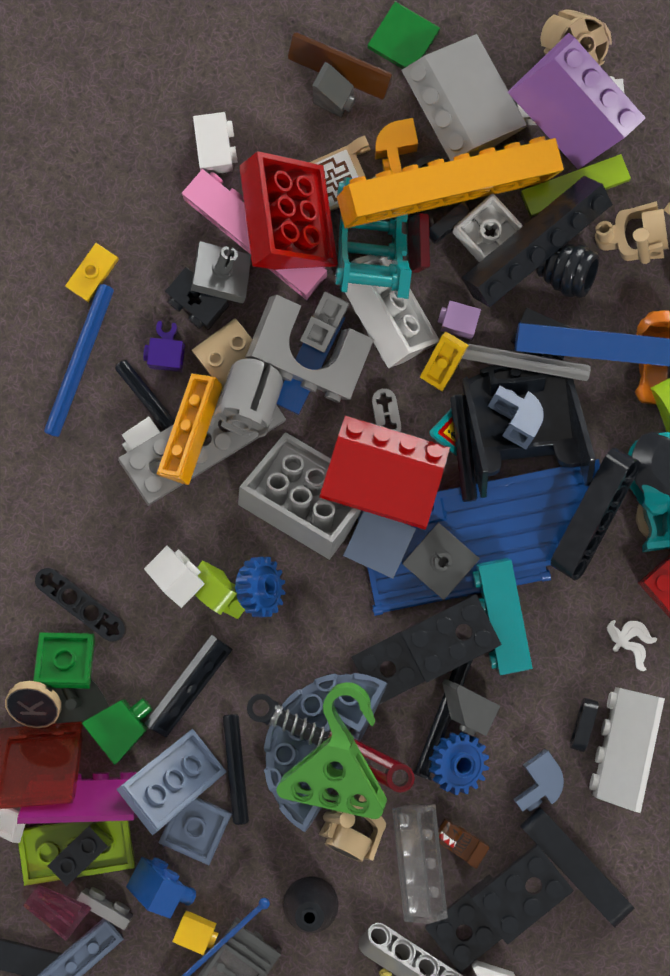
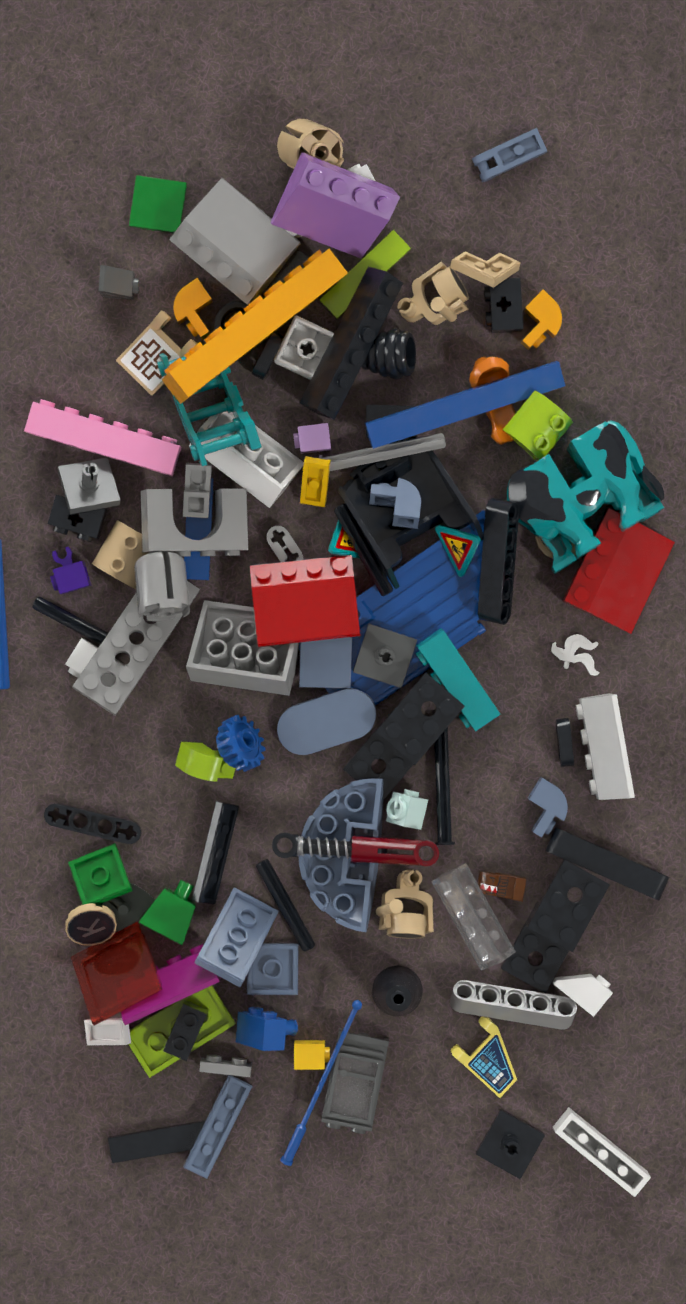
camera: 30 degrees left, 5 degrees up
(56, 910) = (186, 1086): clear pink wing -> none
(175, 575) = (163, 764): white brick -> none
(190, 428) = (122, 634): light orange slope -> none
(213, 143) = (32, 373): white brick -> none
(287, 213) = (124, 410): red slope -> none
(340, 747) = (366, 849): bright green piece -> none
(355, 602) = (326, 721): none -> sand blue tile
(359, 73) = (112, 255): reddish brown slope -> none
(398, 724) = (406, 809): none -> light aqua brick
(419, 242) = (249, 385): dark red tile -> none
(469, 708) = (461, 770): dark grey slope -> none
(471, 765) = (483, 820): blue gear -> none
(560, 484) = (459, 547): none -> piece

